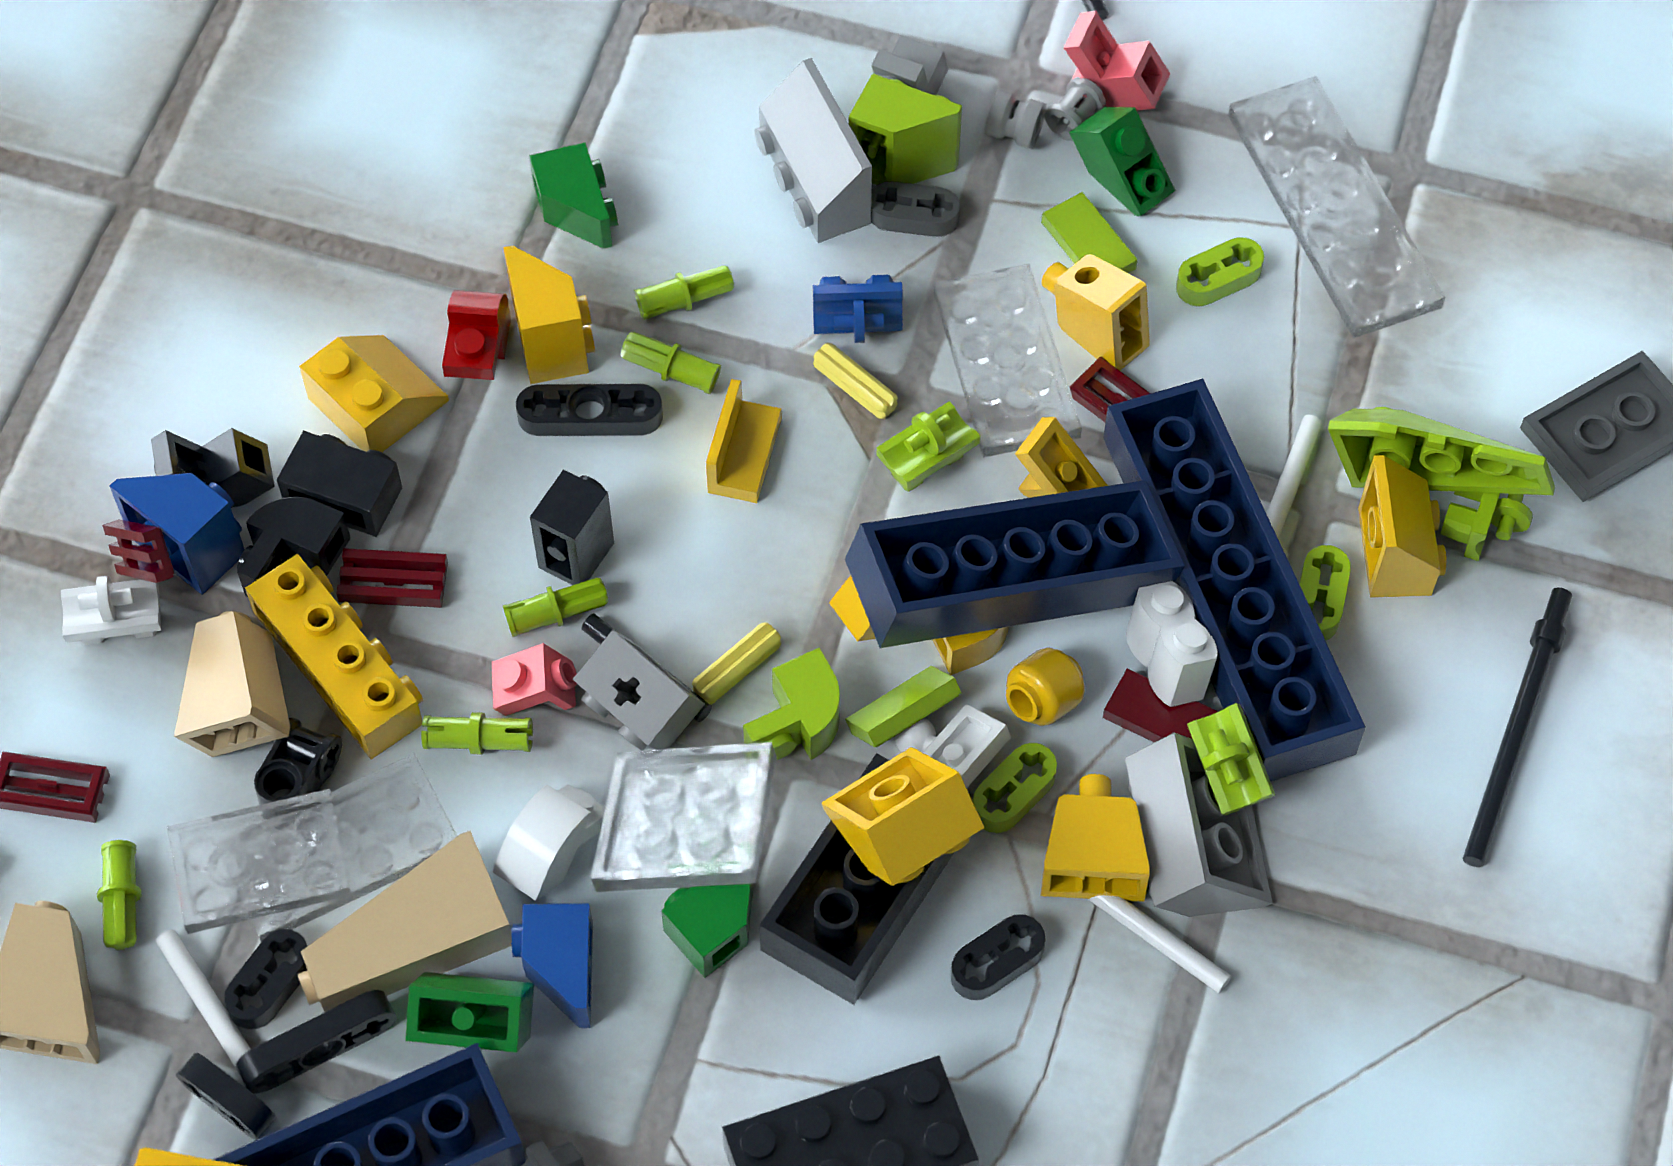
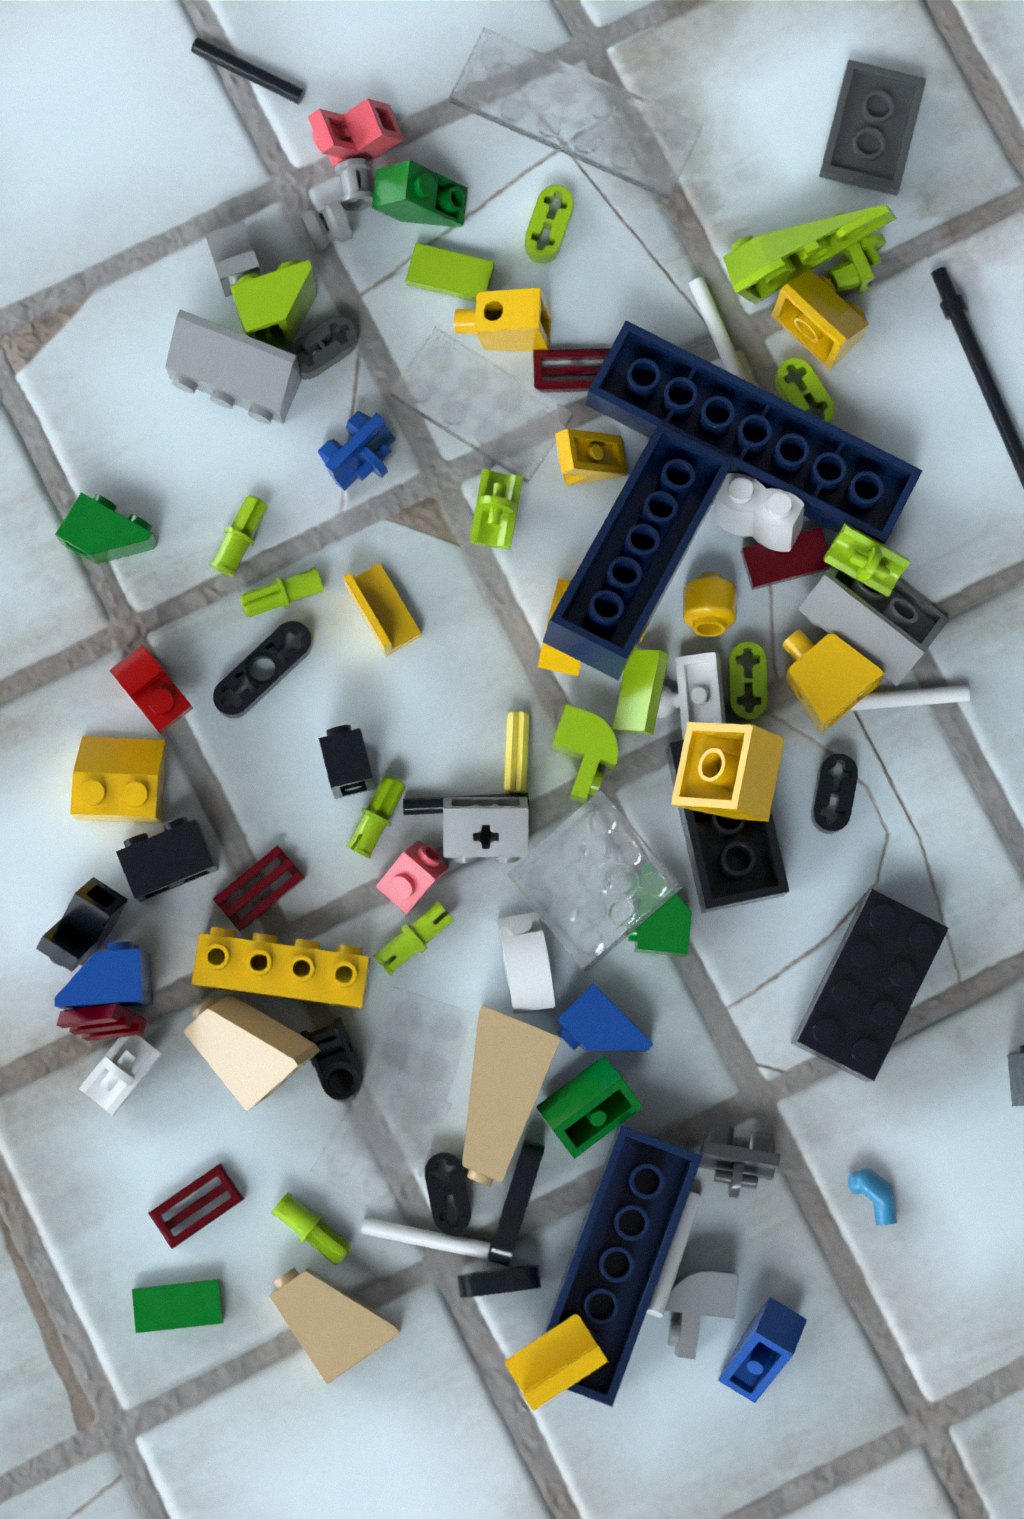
camera: 50 degrees left, 20 degrees up
(288, 529) = (172, 917): black brick -> none
(549, 318) = (184, 636): yellow slope -> none
(855, 380) = (403, 501): light yellow axle -> none

